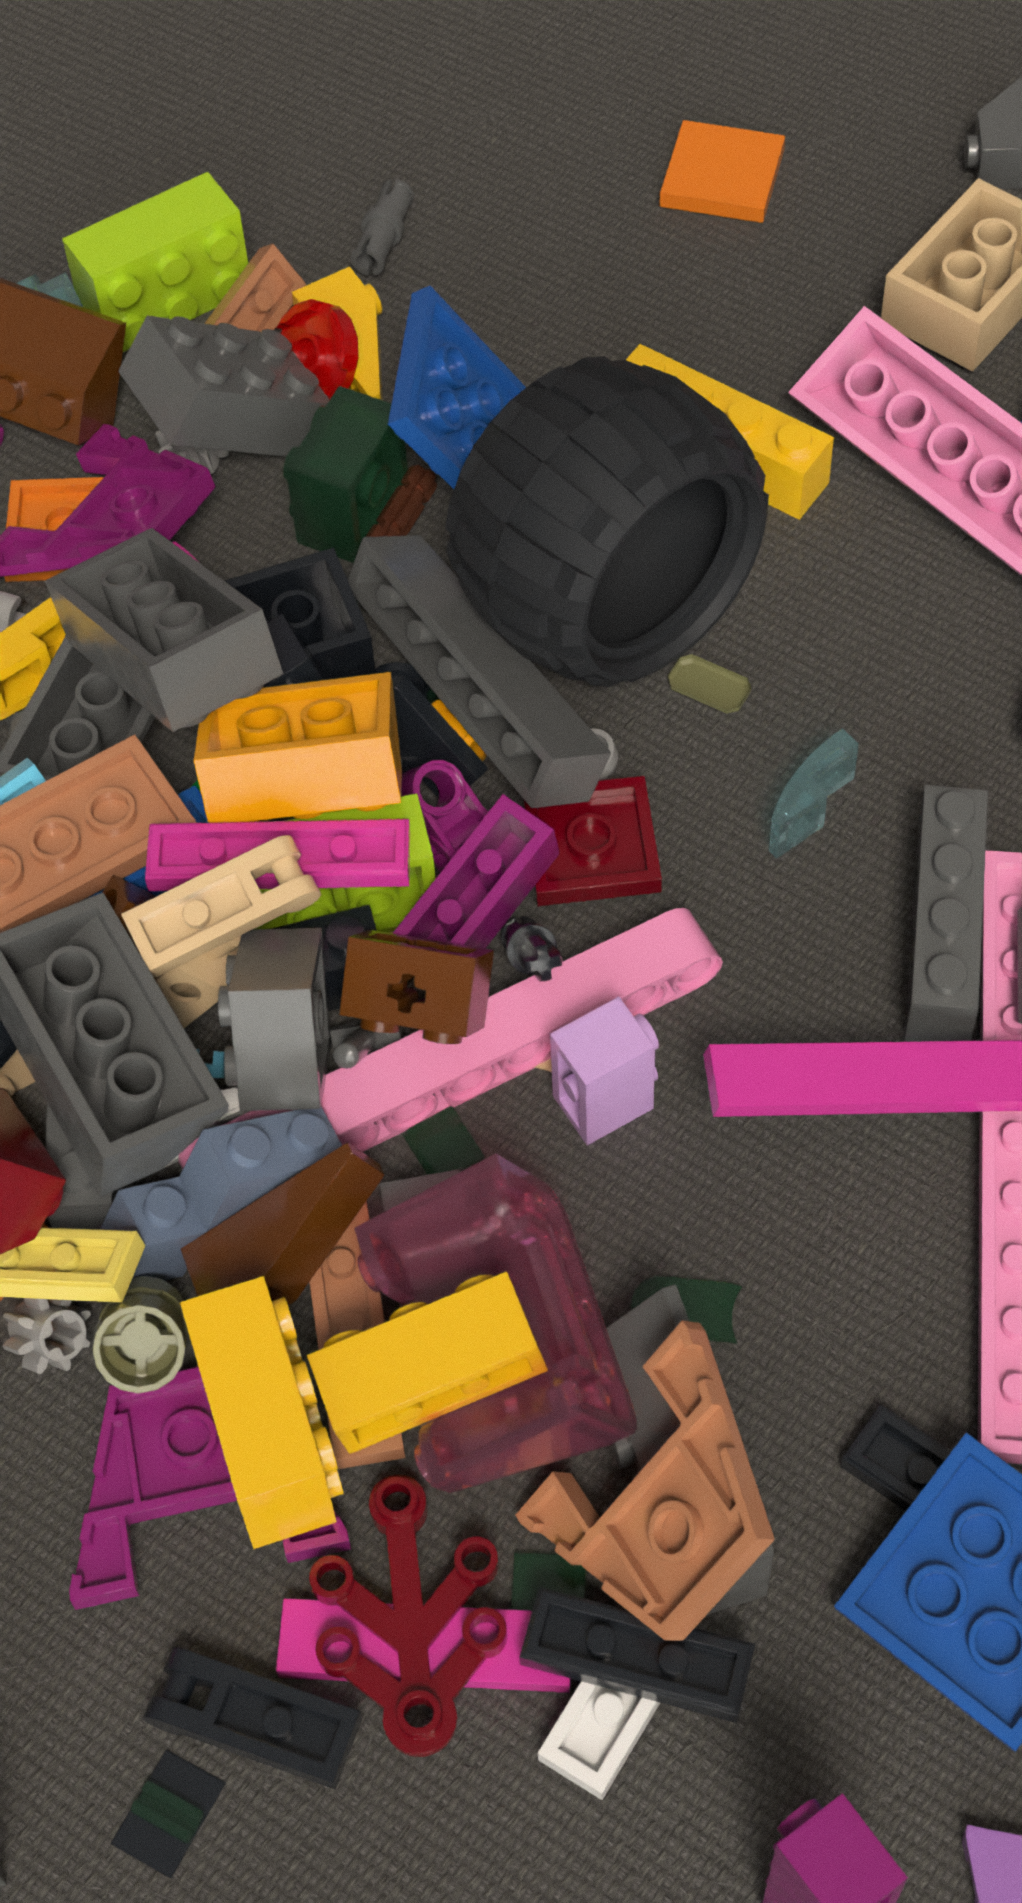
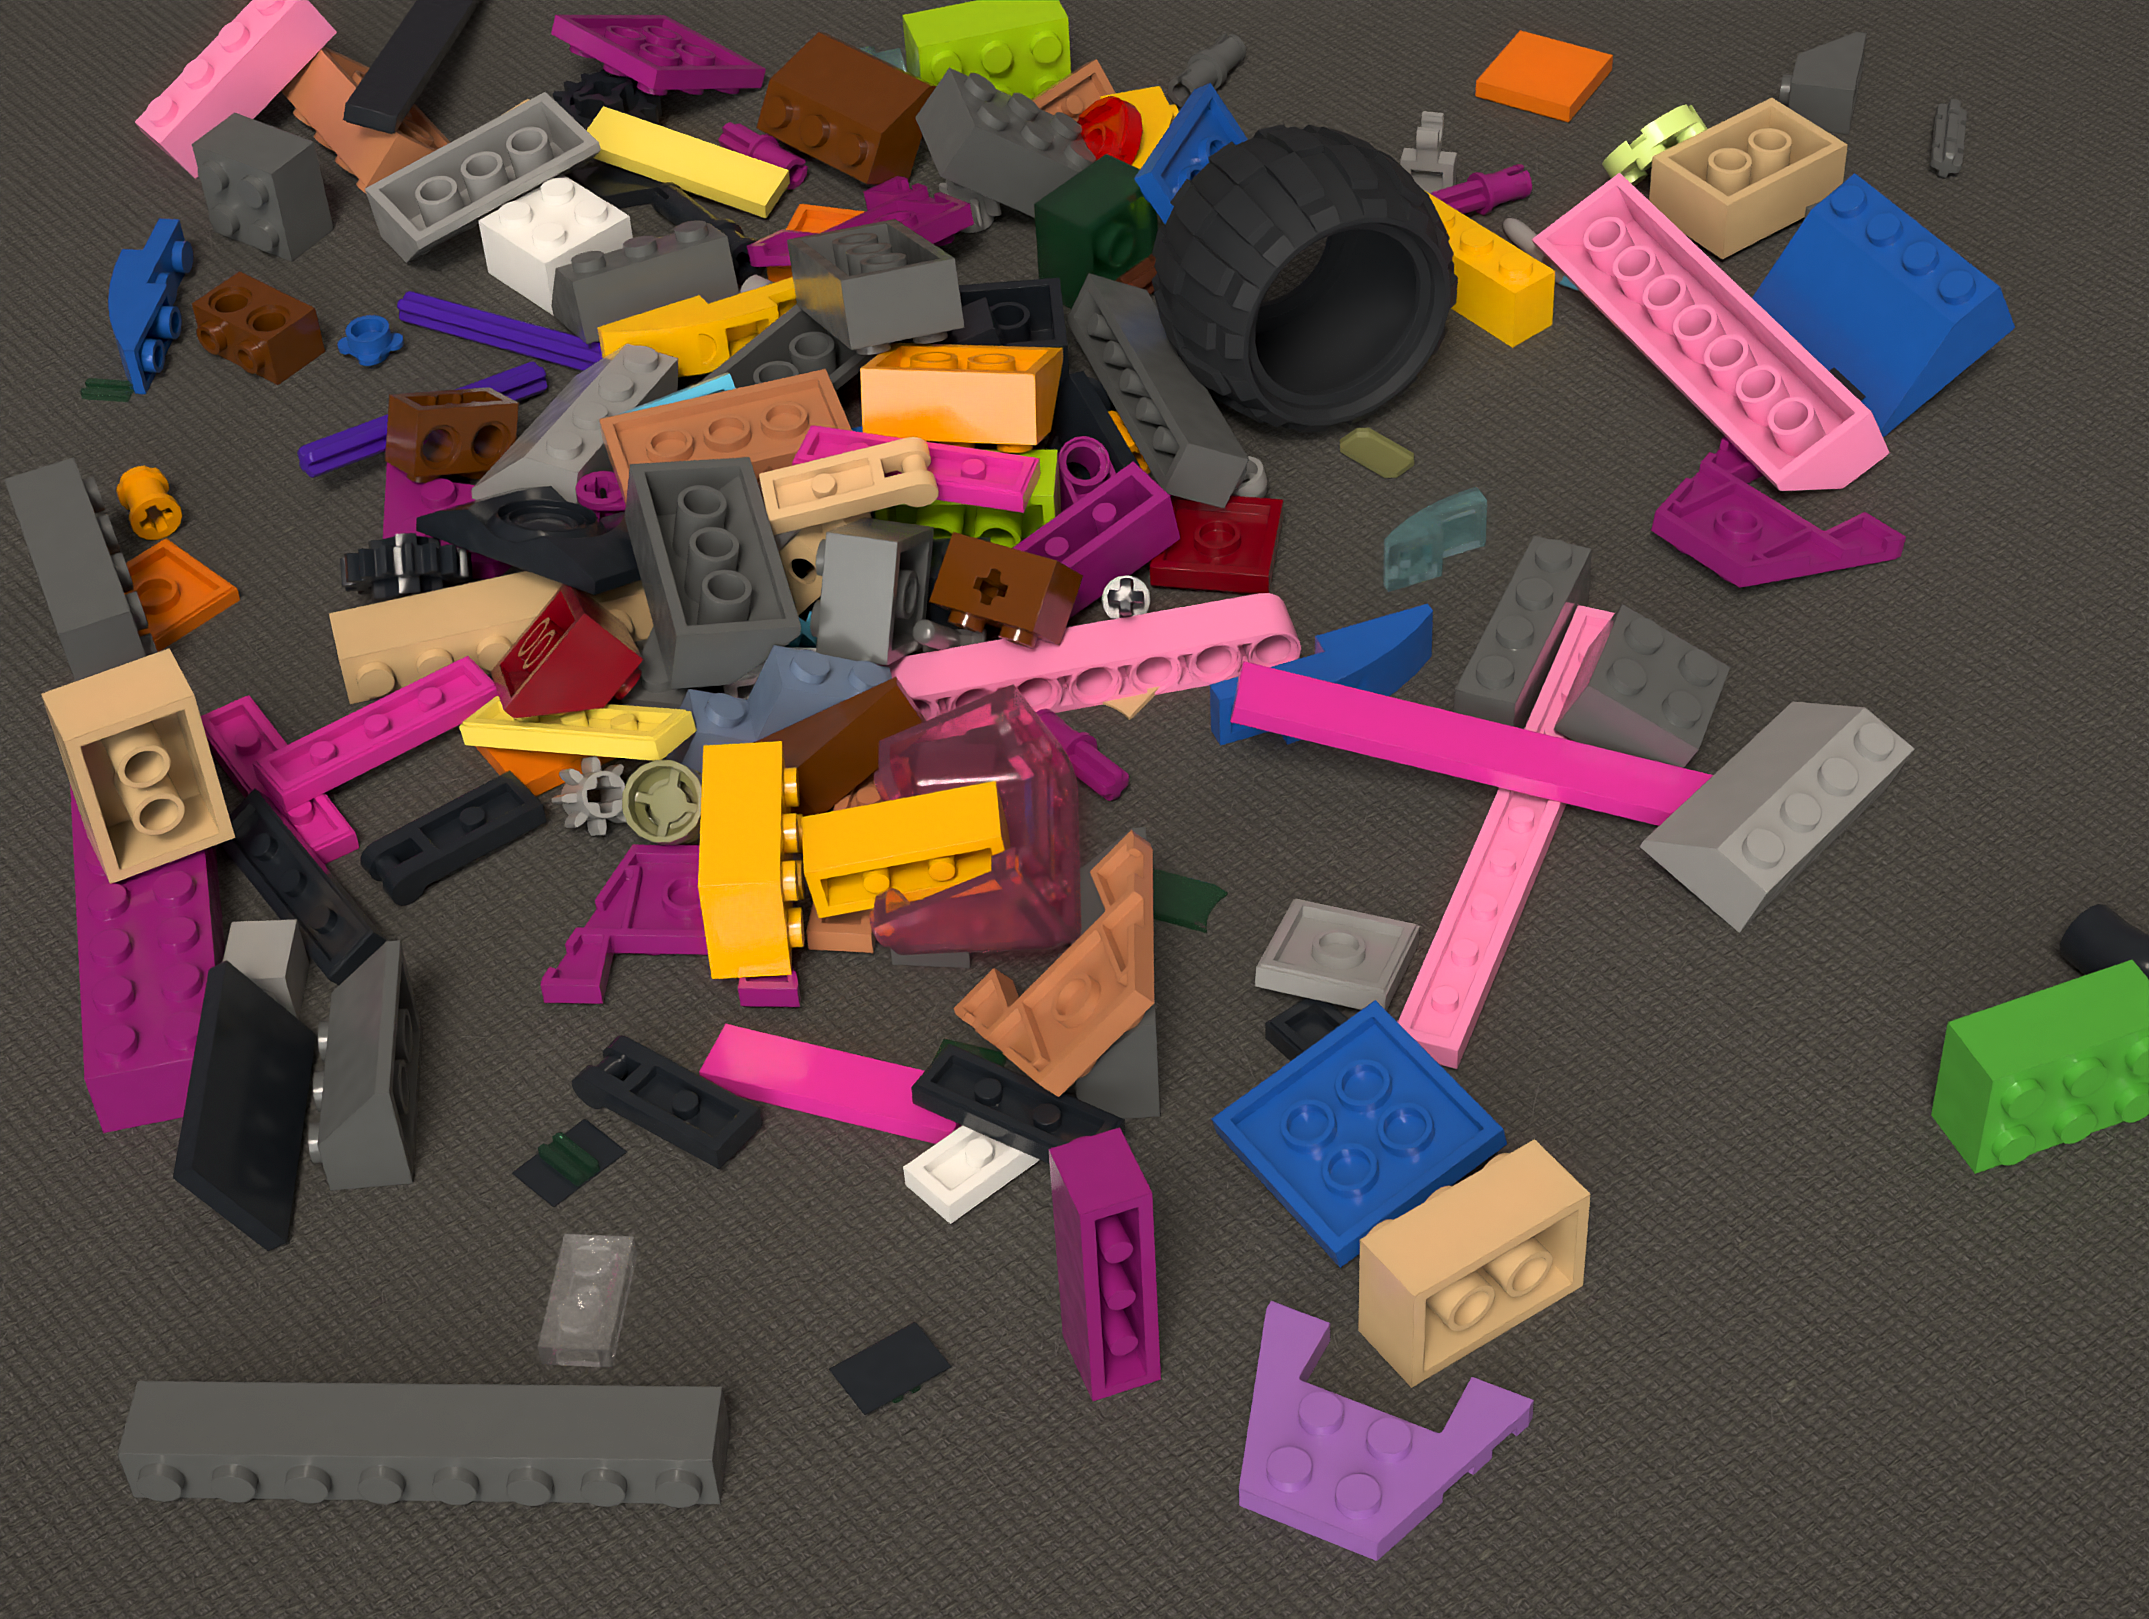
camera: 15 degrees right, 15 degrees down
(410, 1626) = (815, 1123): dark red plant -> none
(535, 1150) = (1088, 763): none -> magenta axle
(604, 1069) = (1155, 693): lavender brick -> none
(654, 320) = (1427, 163): none -> light grey plate
(713, 333) = (1488, 190): none -> magenta axle
(777, 991) = (1364, 656): none -> blue slope
(778, 388) = (1522, 236): none -> light grey piece
(871, 258) = (1657, 137): none -> yellowish green plate
(889, 1356) = (1337, 955): none -> light grey tile

